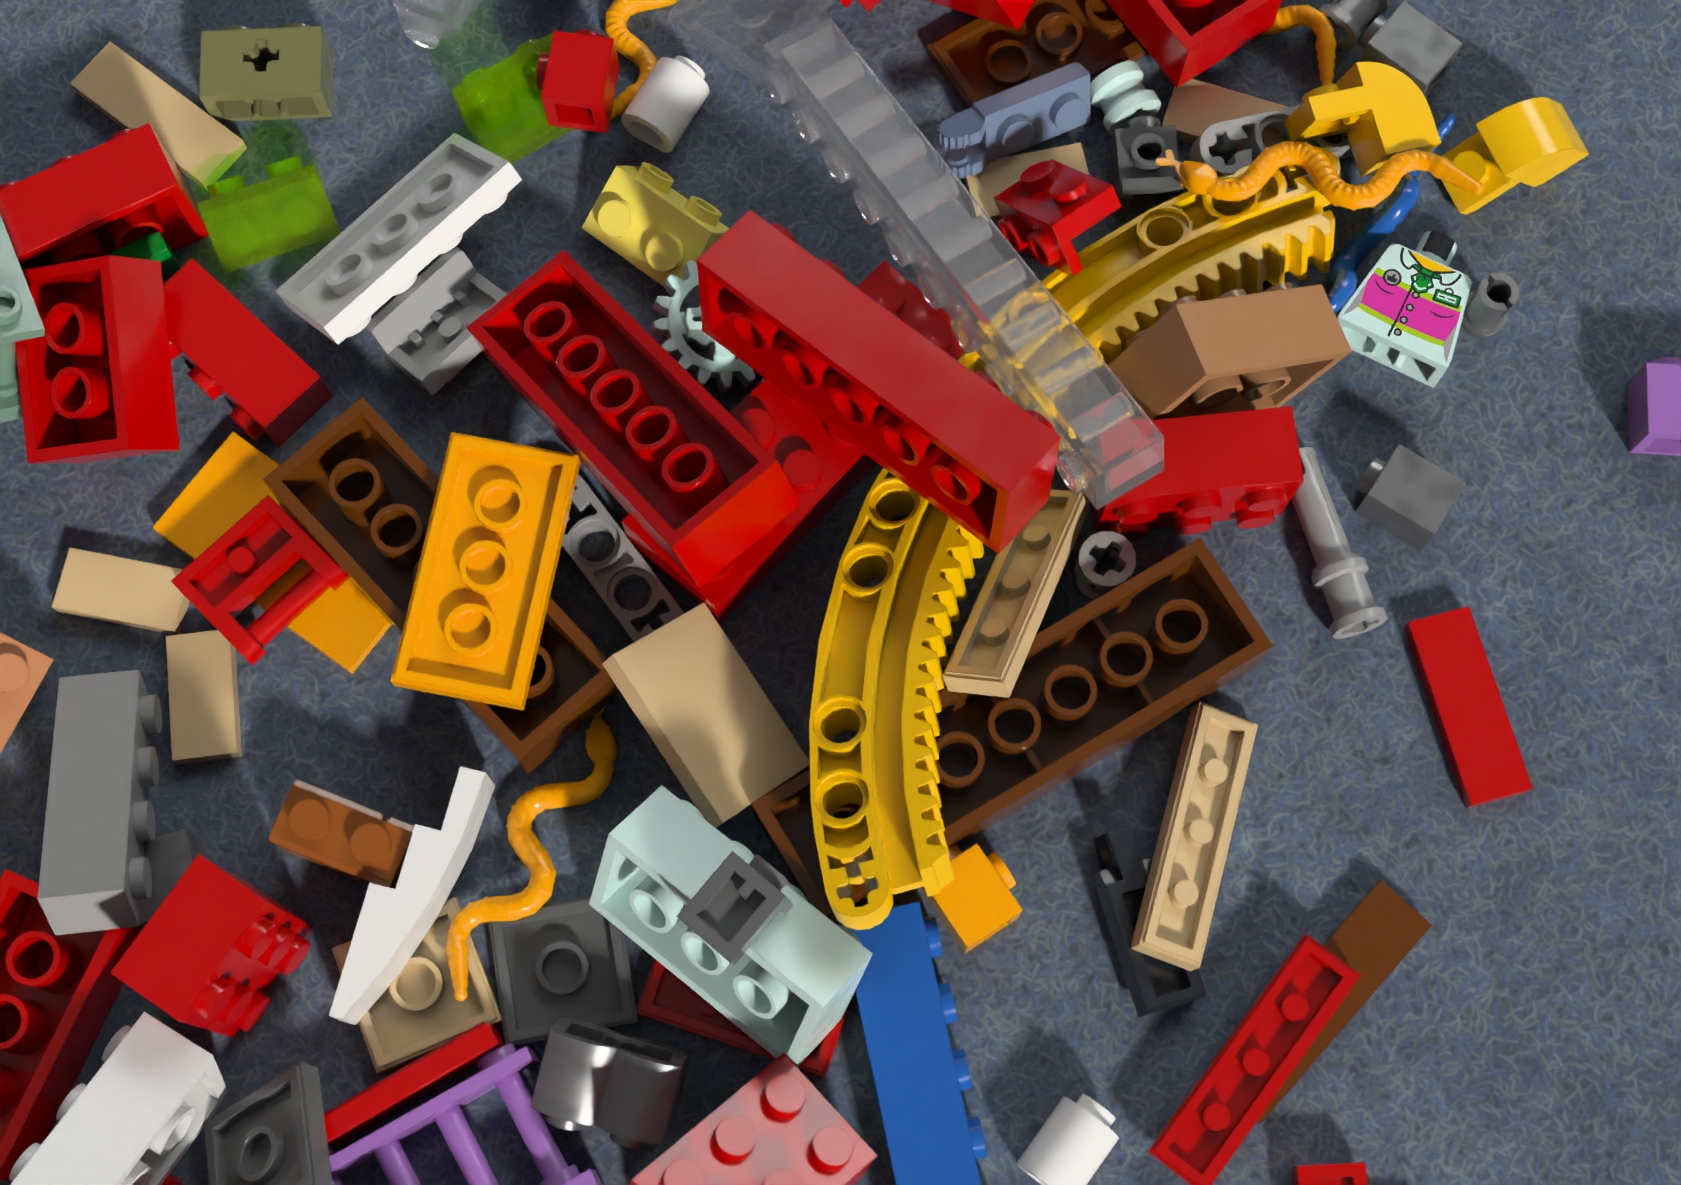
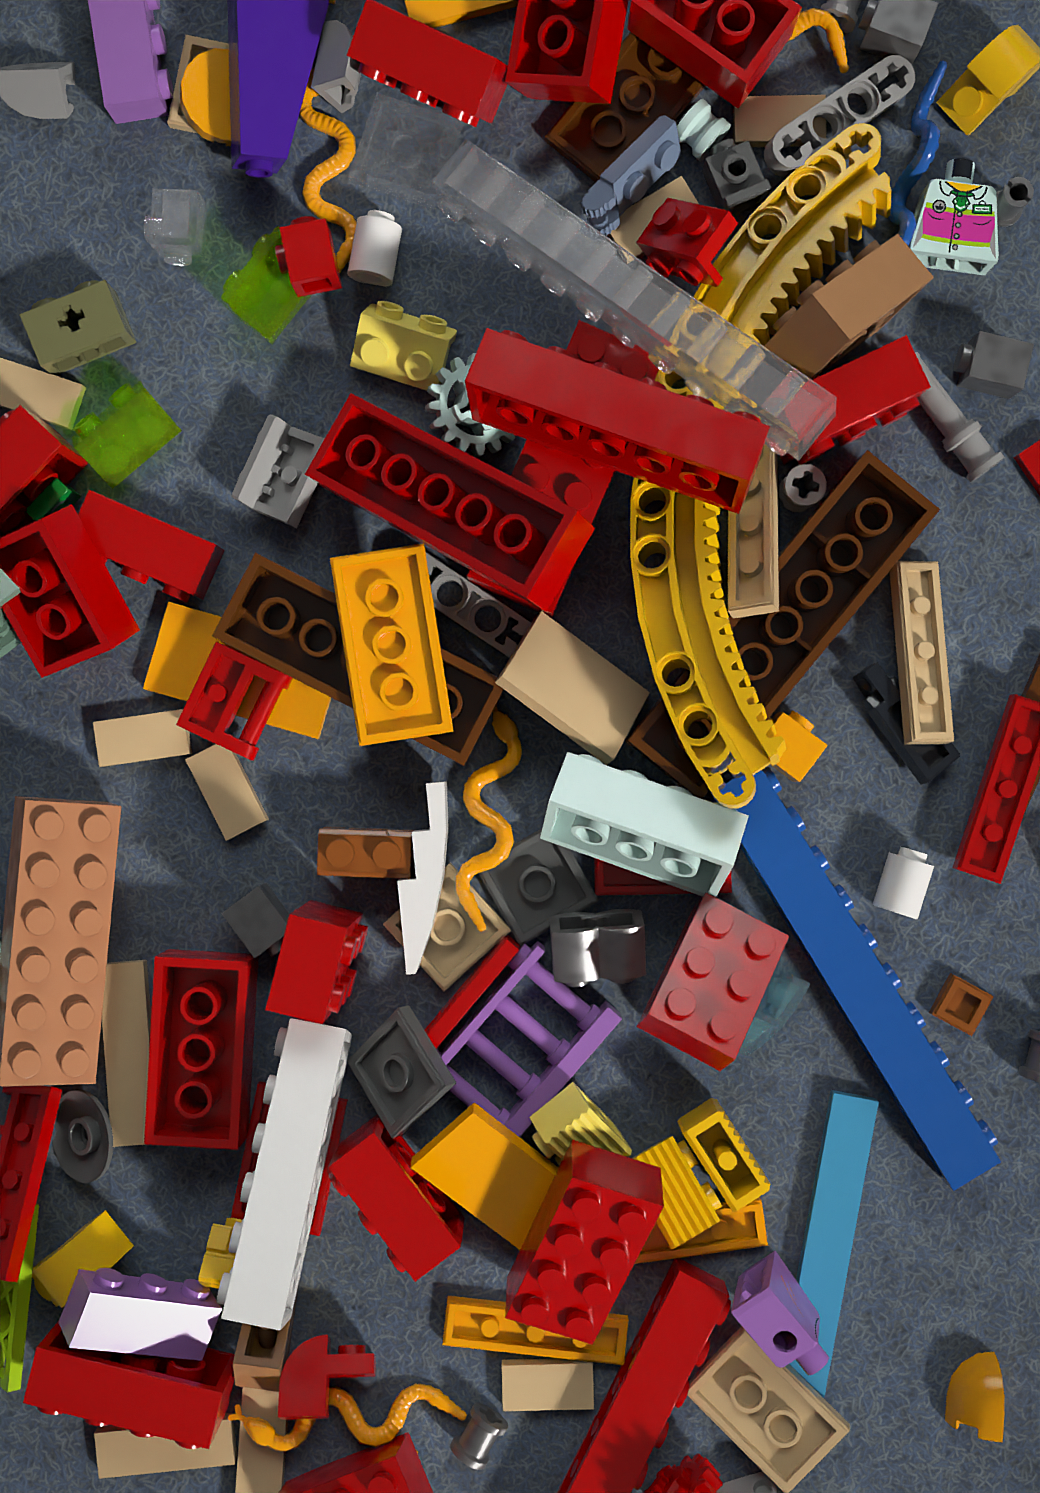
camera: 20 degrees left, 15 degrees up
(99, 803) = (196, 891): light grey brick -> none
(398, 237) = (226, 420): white plate -> none
(736, 905) = (655, 821): dark grey bracket -> none
(1203, 179) = (784, 178): light orange animal -> none
(1375, 108) = (894, 80): yellow brick -> none

